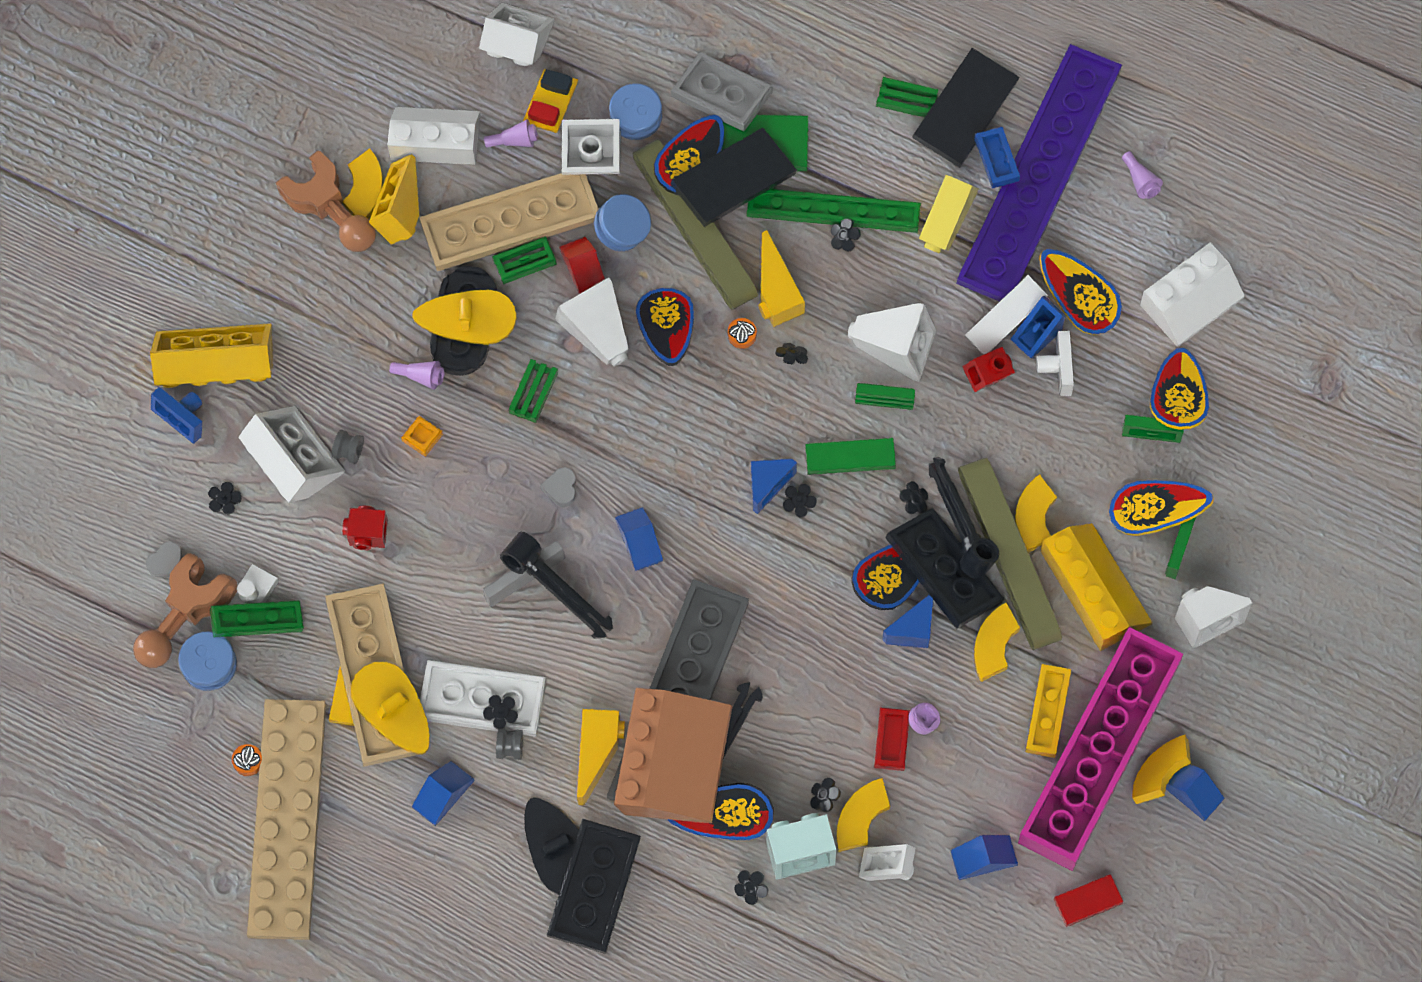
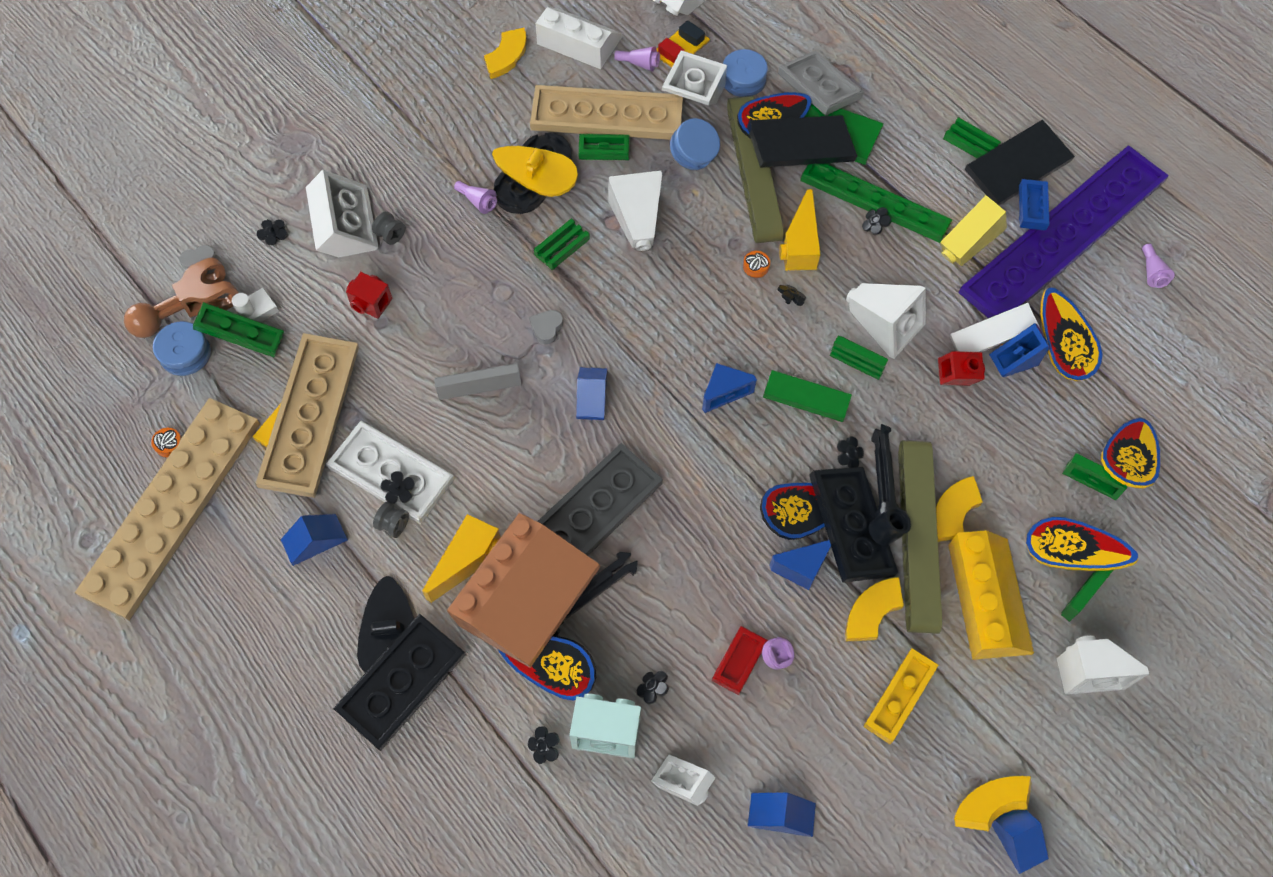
camera: 20 degrees right, 5 degrees down
(179, 414) = (273, 155): blue tile -> none
(212, 355) = (321, 124): yellow slope -> none
(323, 198) = (470, 47): nougat piece -> none
(391, 706) = (307, 445): yellow shield -> none
(397, 203) = (523, 70): yellow slope -> none
(422, 436) = (454, 244): light orange tile -> none
(524, 555) = (480, 362): black piece -> none
(582, 264) = (648, 159): red slope -> none
(666, 323) = (695, 231): shield -> none
(799, 500) = (745, 415): black plant -> none
(859, 813) = (678, 718): yellow tile -> none
(1059, 363) = (1028, 389): white tile -> none
(1100, 749) = (938, 757): dark pink brick -> none
(1192, 295) = (1171, 376): white slope -> none

